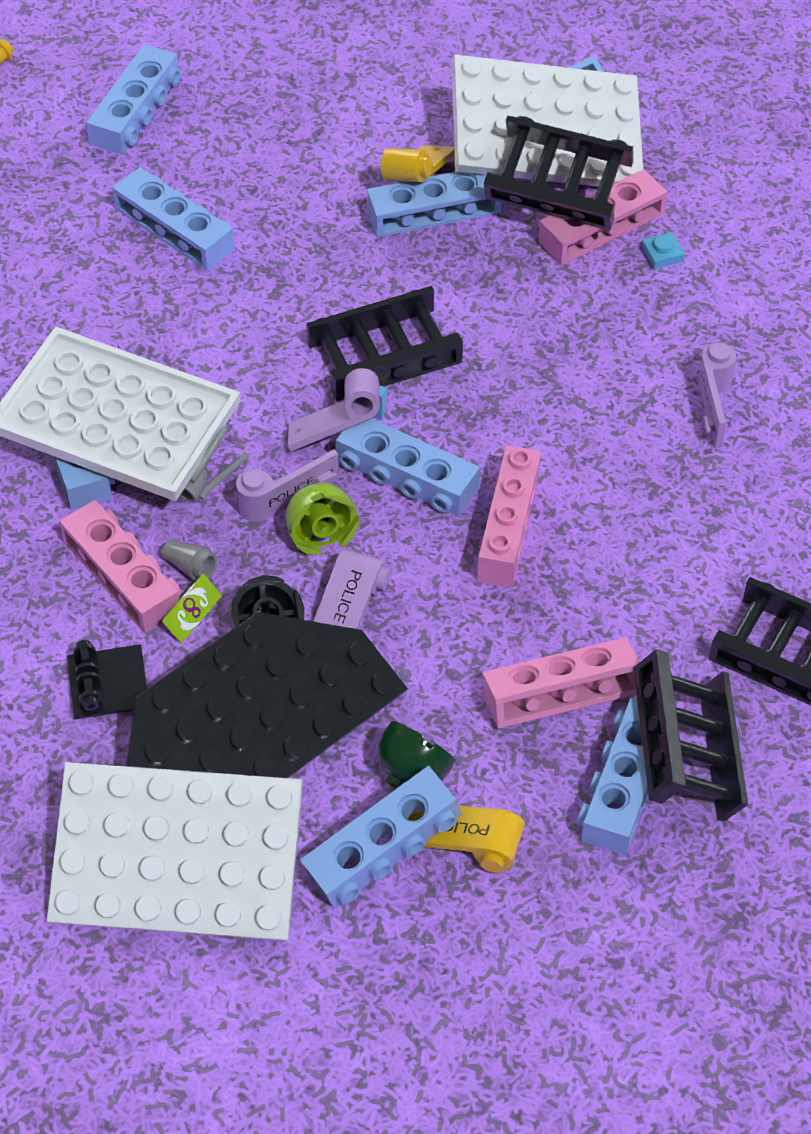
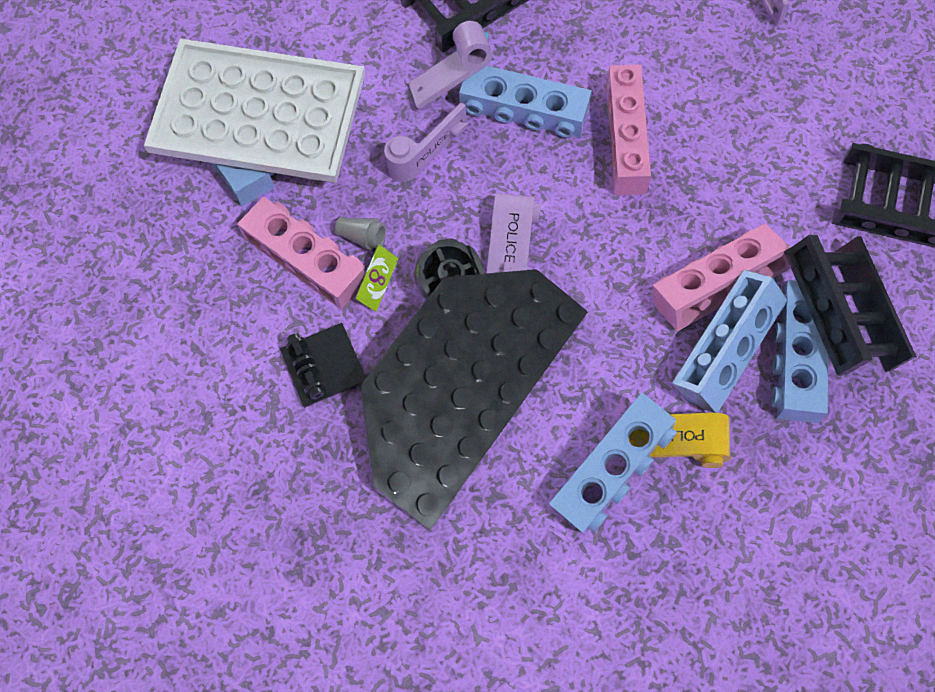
camera: 10 degrees left, 15 degrees up
(176, 851) = (435, 522): white plate -> none
(197, 485) = (351, 160): light grey plant -> none
(321, 511) = (466, 162): lime cylinder -> none
(405, 753) = (614, 381): dark green cylinder -> none
(547, 744) = (730, 341): none -> light blue brick

